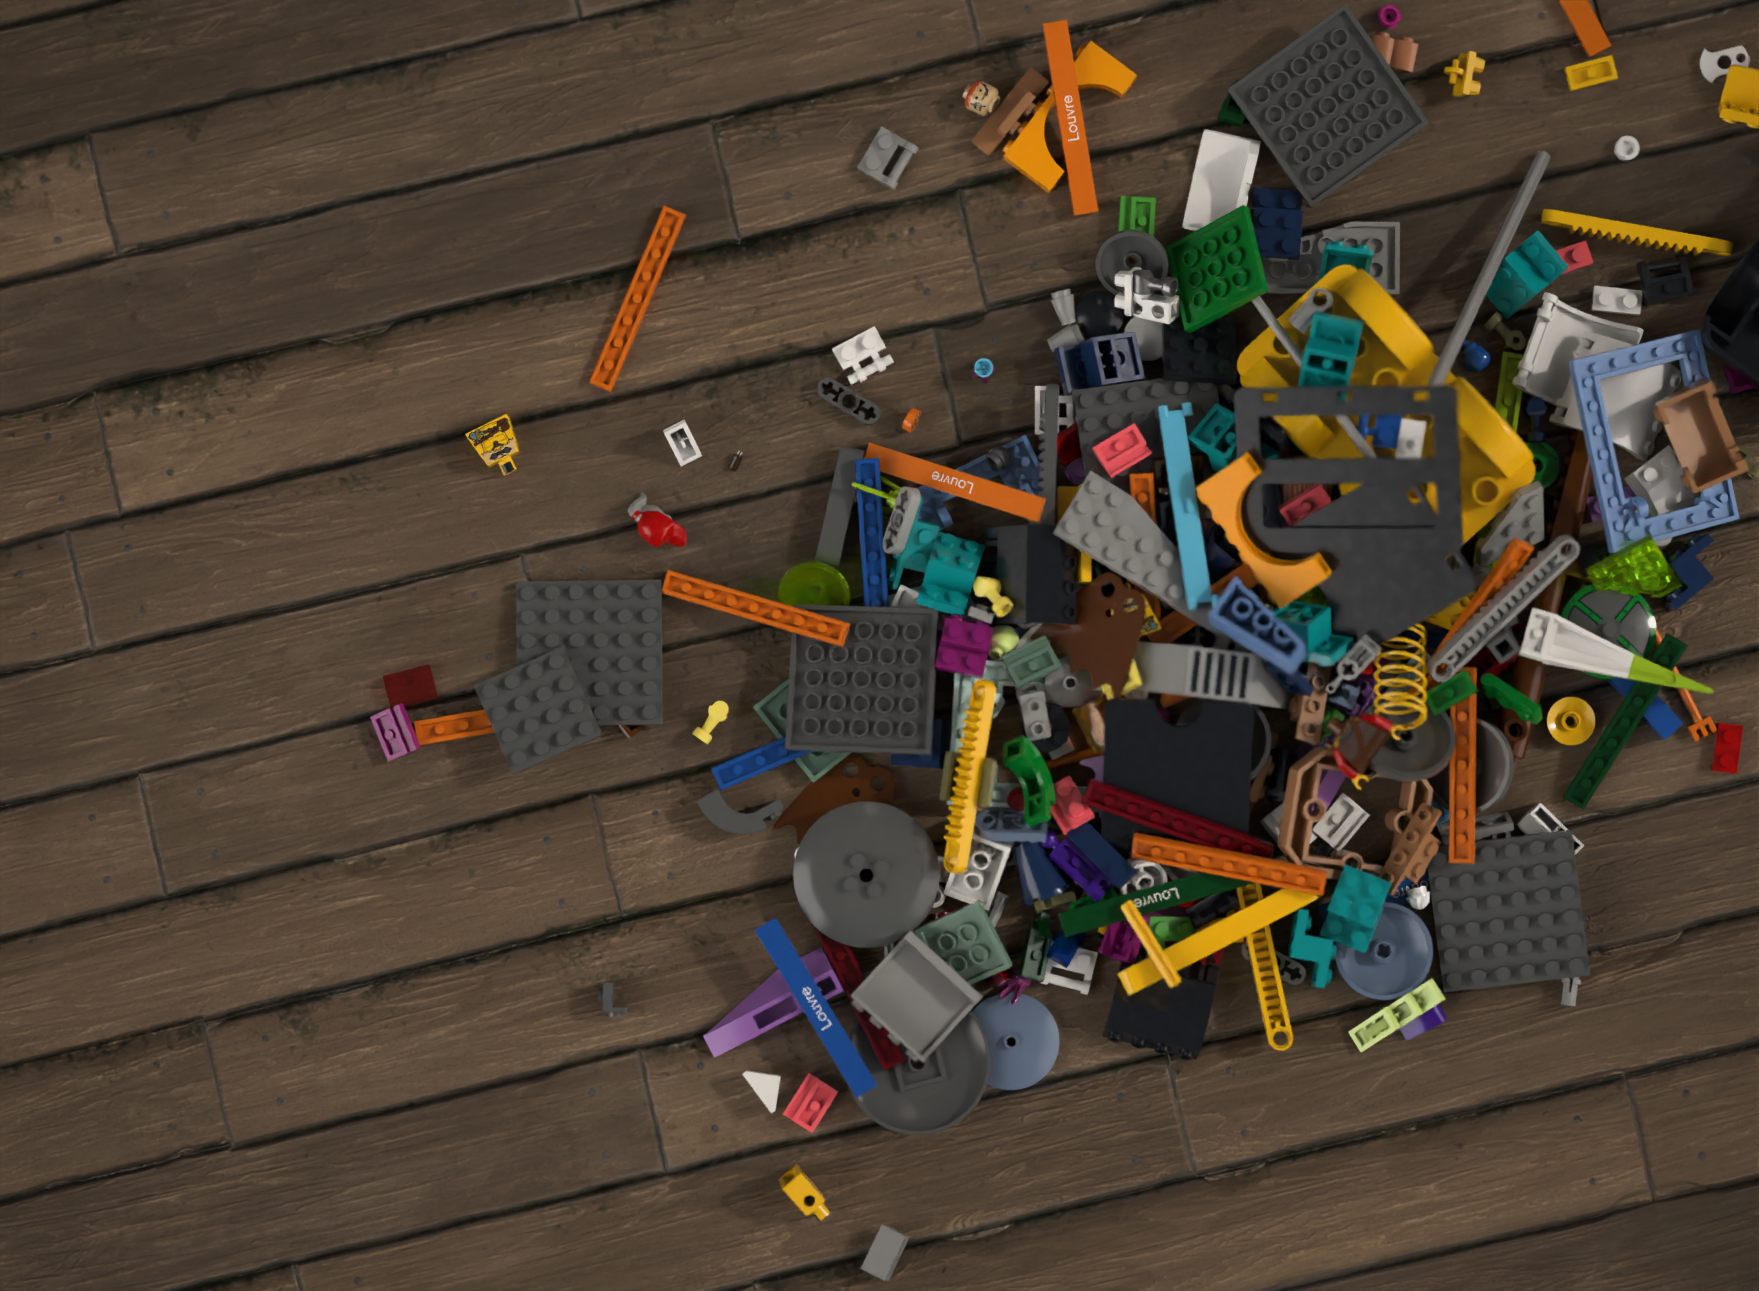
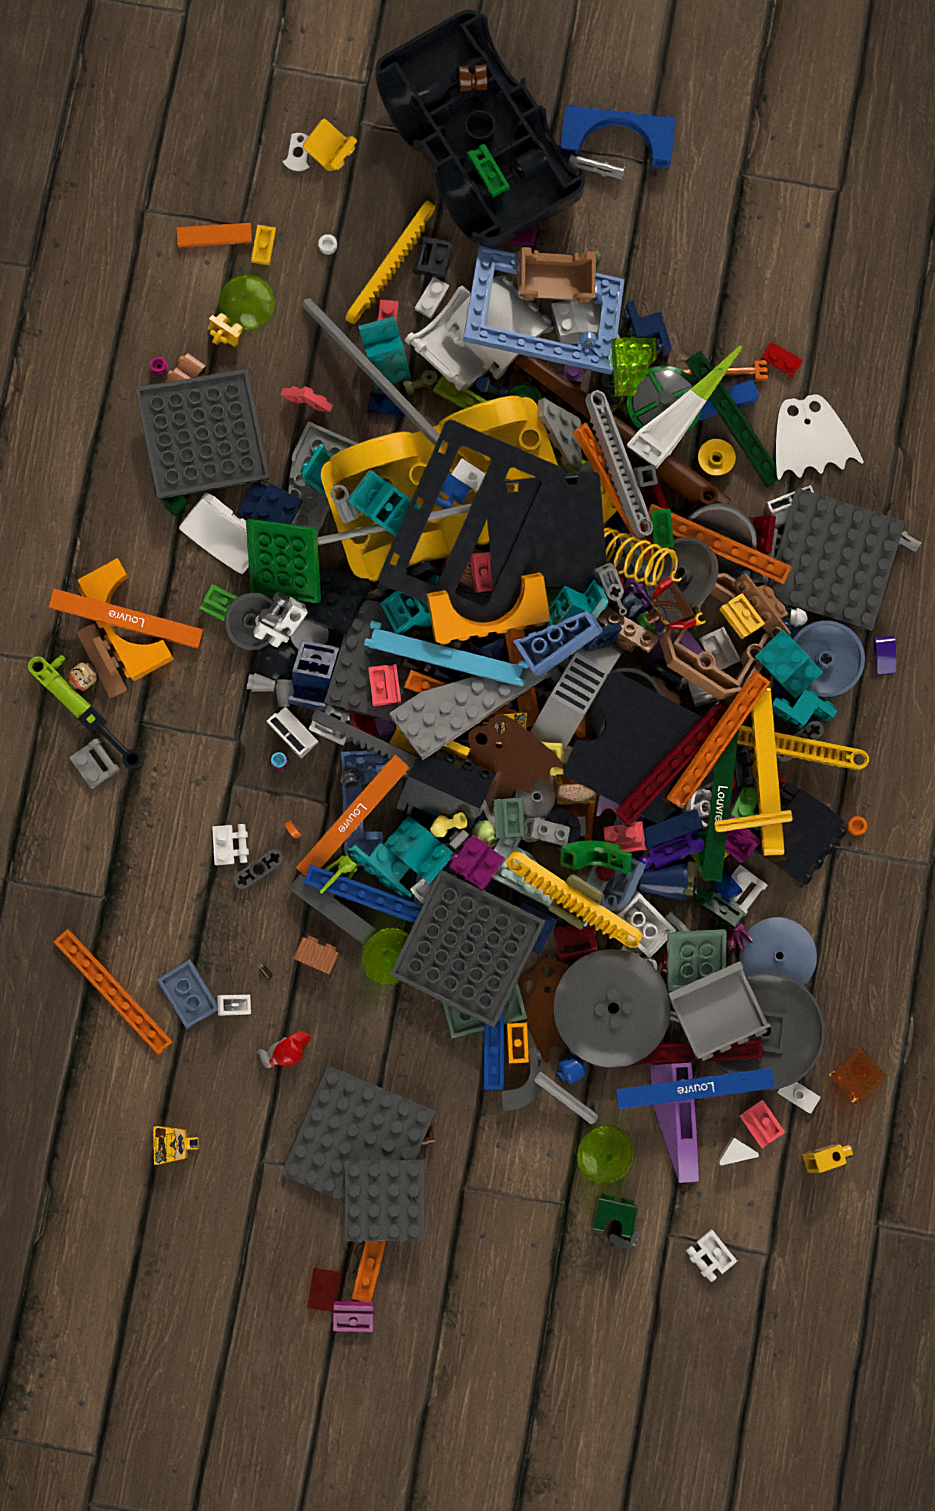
camera: 70 degrees left, 5 degrees down
(642, 982) = (608, 1208): none -> dark green piece
(644, 1110) = (716, 1251): none -> white plate
(672, 385) = (188, 994): none -> sand blue tile
(698, 926) = (597, 1147): none -> clear neon green dish
(717, 713) = (445, 1066): light yellow leg -> none
(742, 866) = (566, 1098): none -> light grey axle
(755, 608) = (380, 1004): orange tile -> none
(776, 858) = (571, 1069): none -> blue head
(779, 511) = (316, 955): none -> nougat brick
(780, 784) = (517, 1043): none -> light orange brick
(861, 1133) = (800, 1096): none -> white plate
(885, 1252) = (895, 1117): light grey hinge -> none
(896, 534) = (376, 880): light grey beam -> none
(913, 1190) = (857, 1075): none -> clear orange slope
(928, 792) = (571, 936): none -> dark red plate
(945, 109) = (79, 706): none -> lime piece
(1023, 369) = (292, 732): none -> white piece
(1203, 1070) = (857, 825): none -> orange tile
(1387, 830) = (742, 616): none -> yellow plate
(1396, 1015) = (876, 670): yellowish green slope -> none
(1427, 207) = (306, 395): none -> coral plate
(1457, 296) = (383, 404): none -> clear blue tile
(1475, 357) = (429, 410): blue piece -> none
(1502, 815) = (765, 532): none -> dark red plate
(1511, 100) = (249, 312): none -> clear neon green dish
(1511, 698) = (685, 488): green plate -> none
(1638, 828) = (811, 444): none -> white piece

